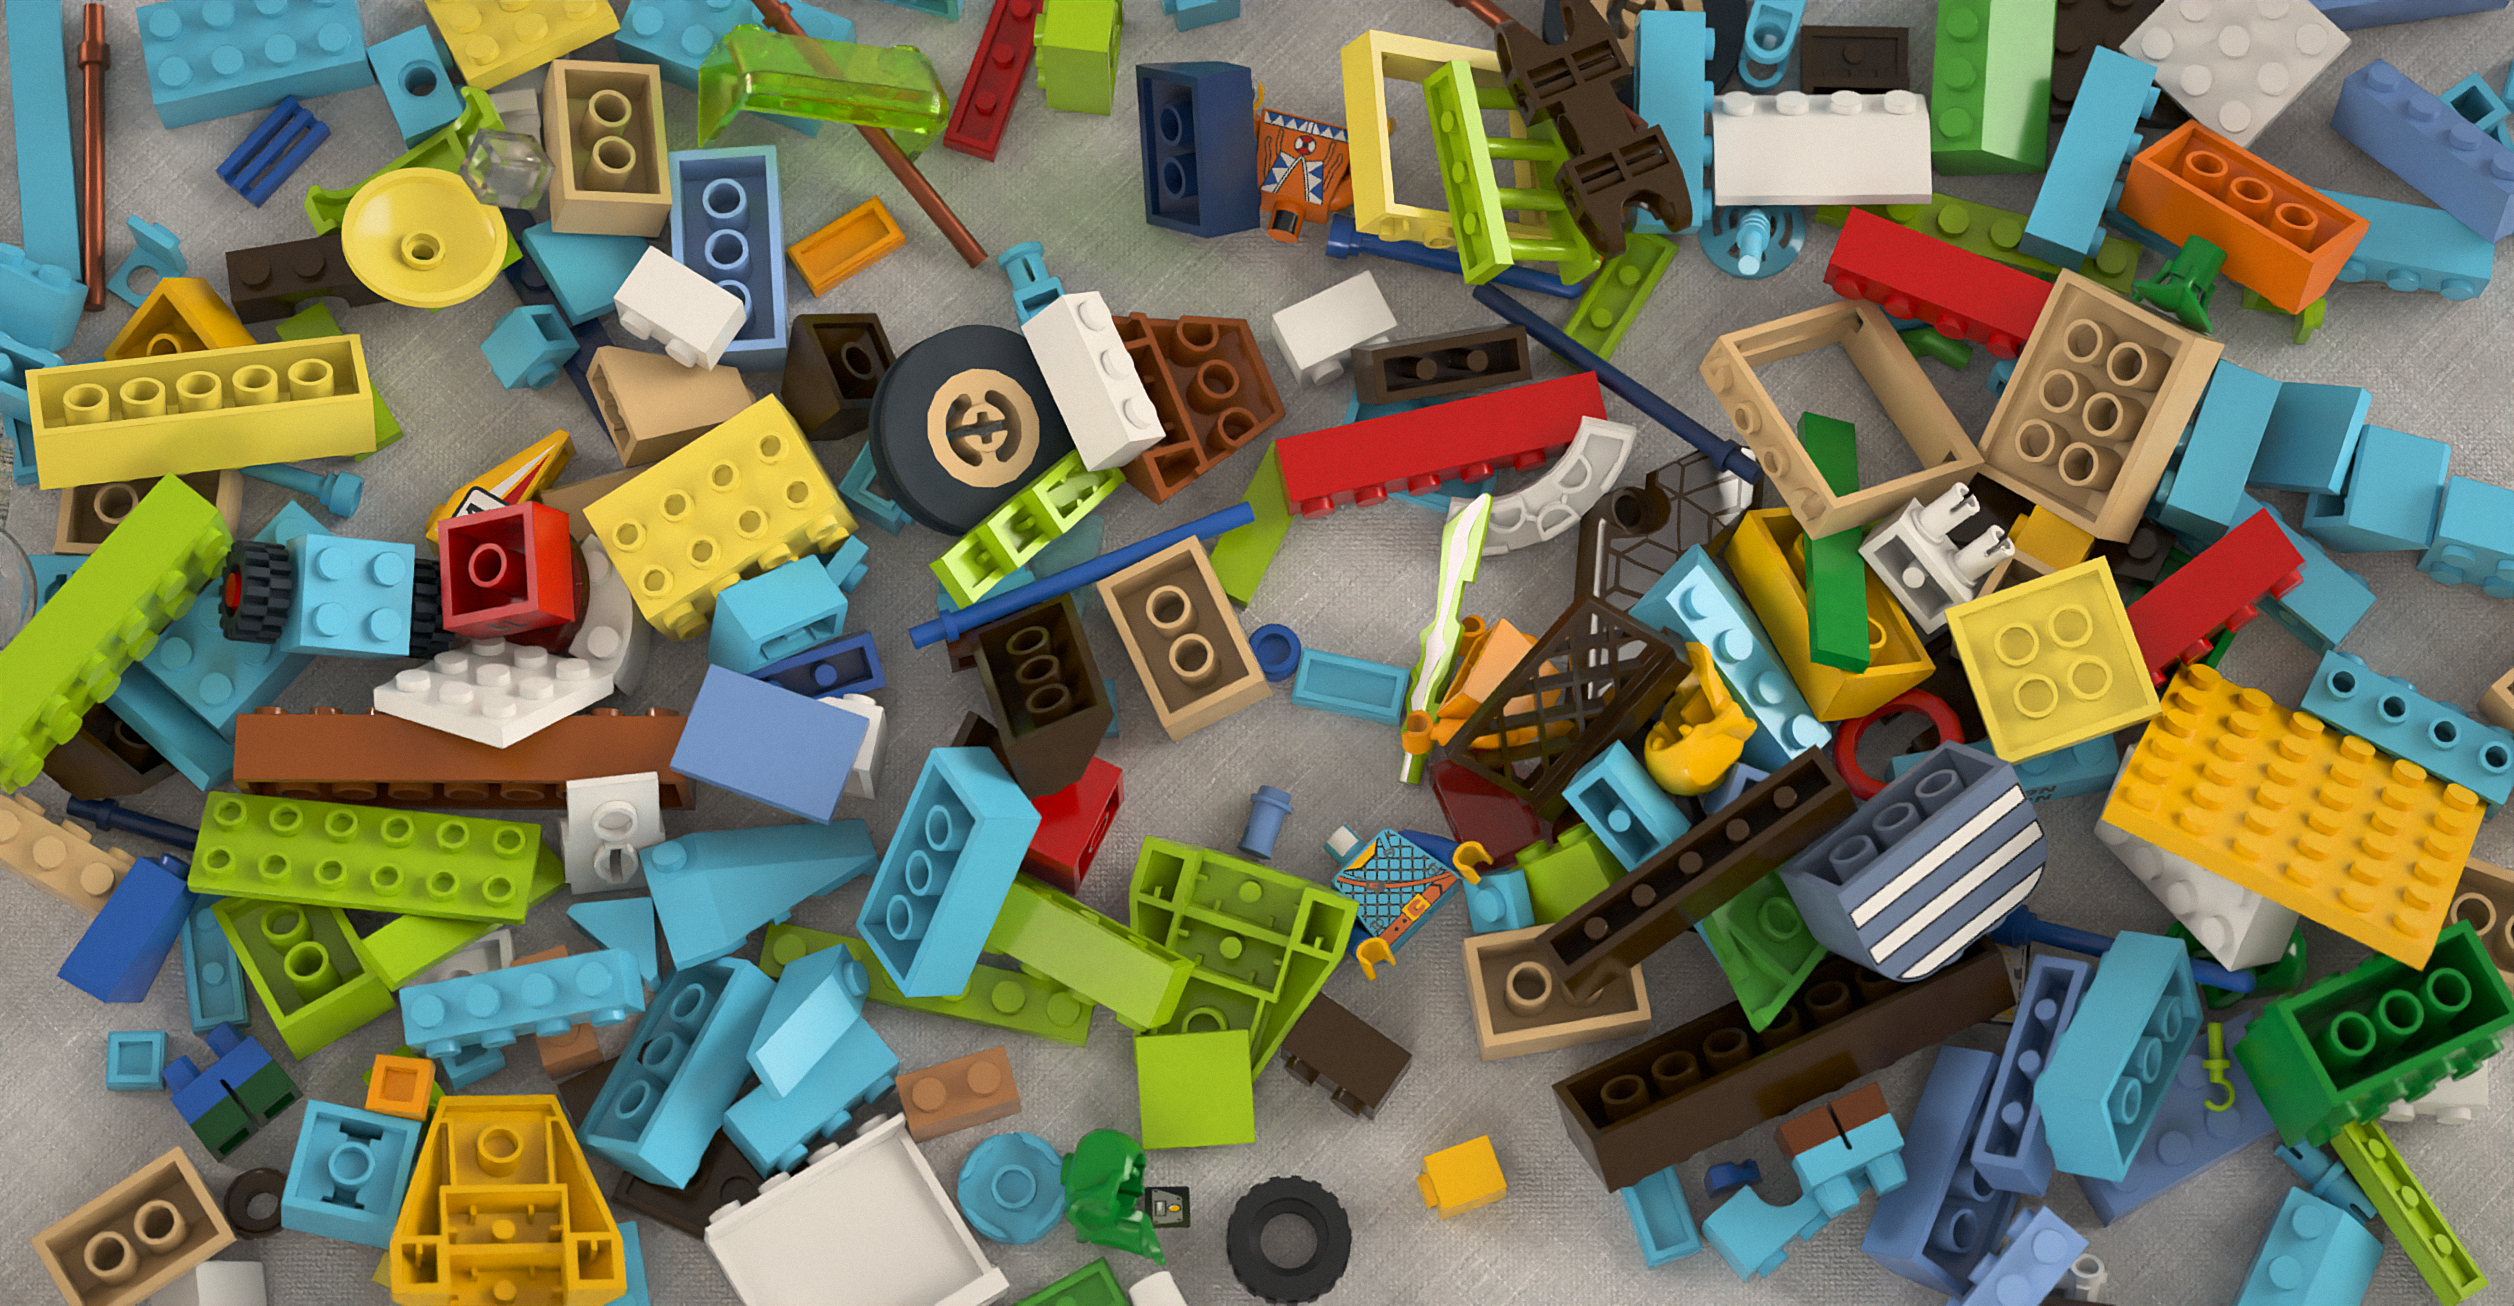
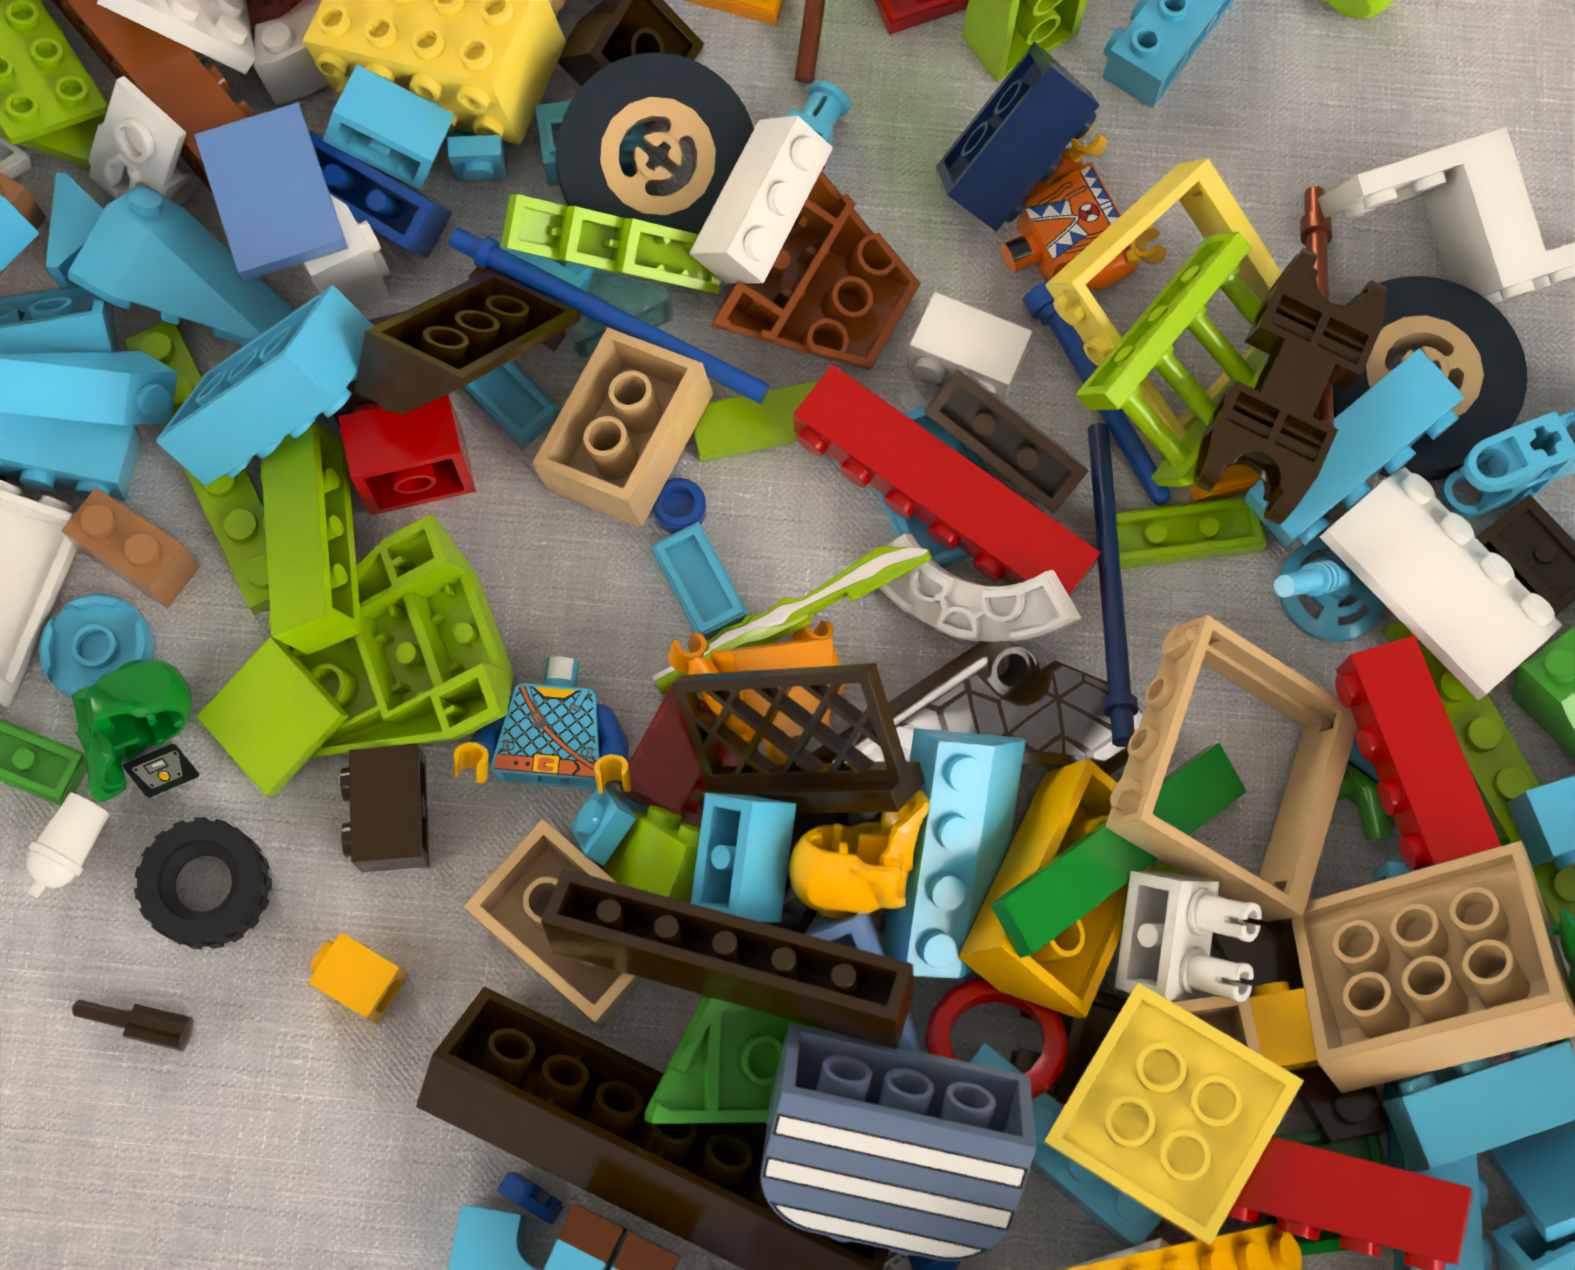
camera: 50 degrees right, 0 degrees up
(1265, 821) = (534, 602): medium blue pin -> none
(1661, 1218) = (450, 1170): medium azure tile -> none

